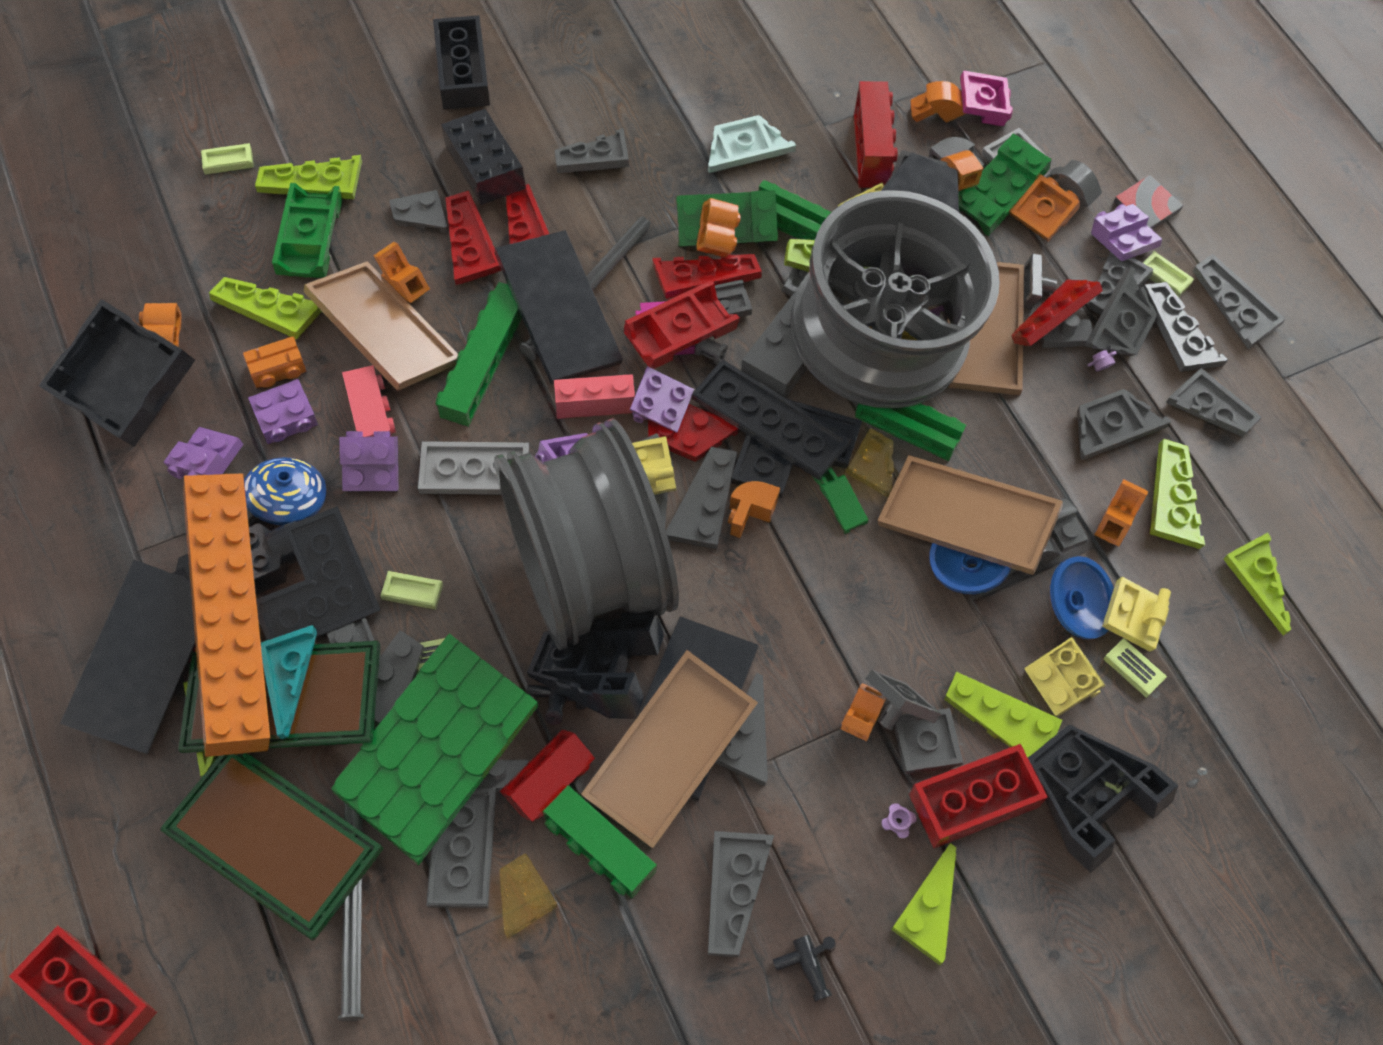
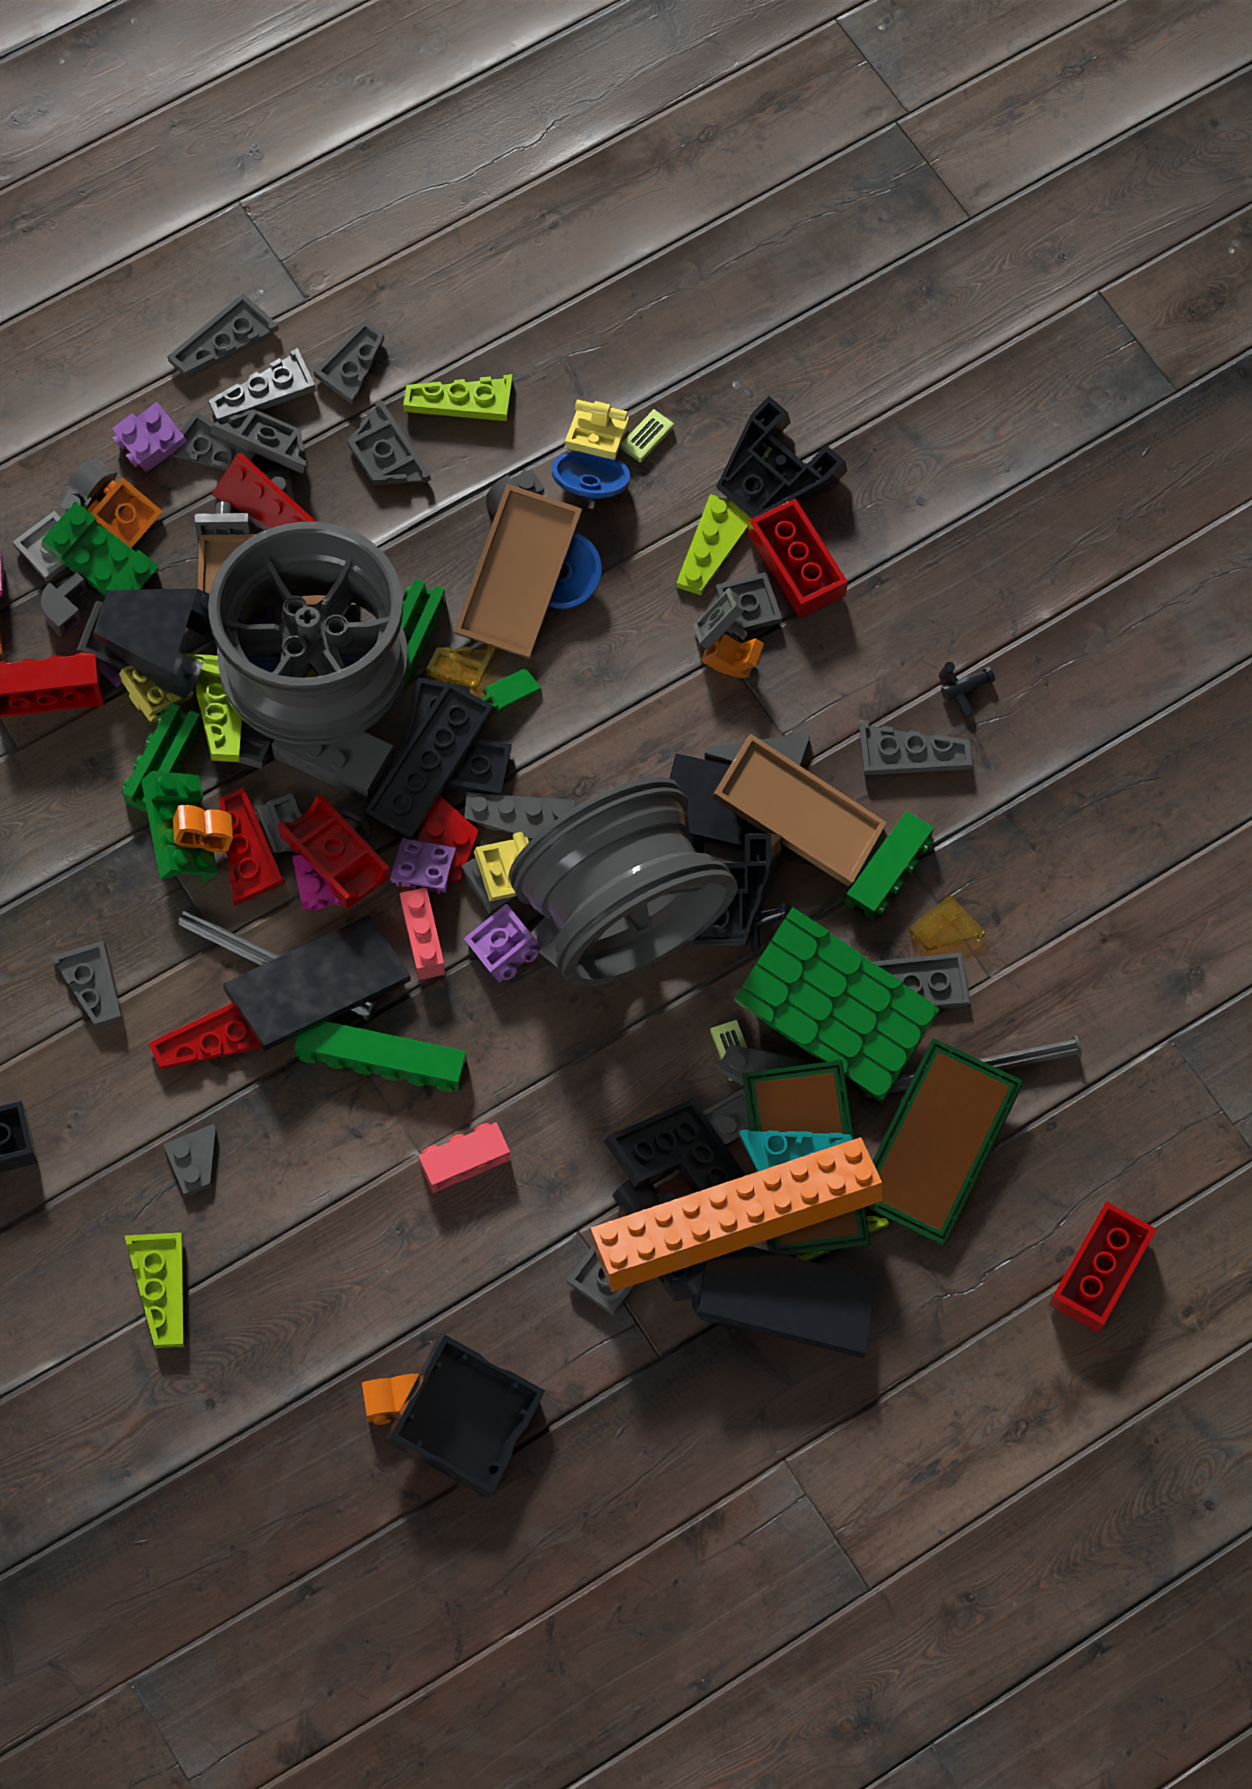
camera: 95 degrees left, 5 degrees up
(204, 454) = (546, 1308): medium lavender plate -> none
(227, 158) = (138, 1393): yellowish green tile -> none
(268, 306) = (347, 1285): lime wing -> none
(274, 362) = (420, 1265): orange brick -> none
(283, 411) = (477, 1246): medium lavender plate -> none
(284, 490) = (570, 1235): blue dish -> none
(306, 232) = (240, 1269): green piece -> none
(369, 461) = (533, 1137): medium lavender plate -> none
(382, 325) = (359, 1162): tile -> none
(400, 274) = (294, 1153): orange brick -> none
(411, 590) = (664, 1077): yellowish green tile -> none
(462, 466) = (520, 1040): light grey plate -> none
(469, 240) = (232, 1095): red wing -> none
(483, 156) = (118, 1094): black brick -> none
(547, 775) = (838, 914): red brick -> none
(745, 143) = (60, 824): light aqua wing -> none
(753, 500) = (524, 775): orange brick -> none
(902, 813) = (829, 618): lavender plate -> none
(928, 913) = (904, 598): lime wing -> none
(967, 166) = (90, 589): orange brick -> none
(1065, 677) = (670, 490): light yellow plate -> none
(1102, 360) = (314, 460): lavender plate -> none
(1121, 512) = (494, 446): orange brick -> none
(1151, 200) = (97, 415): tile -> none
(1167, 272) = (193, 399): yellowish green tile -> none
(1258, 574) = (536, 331): lime wing -> none

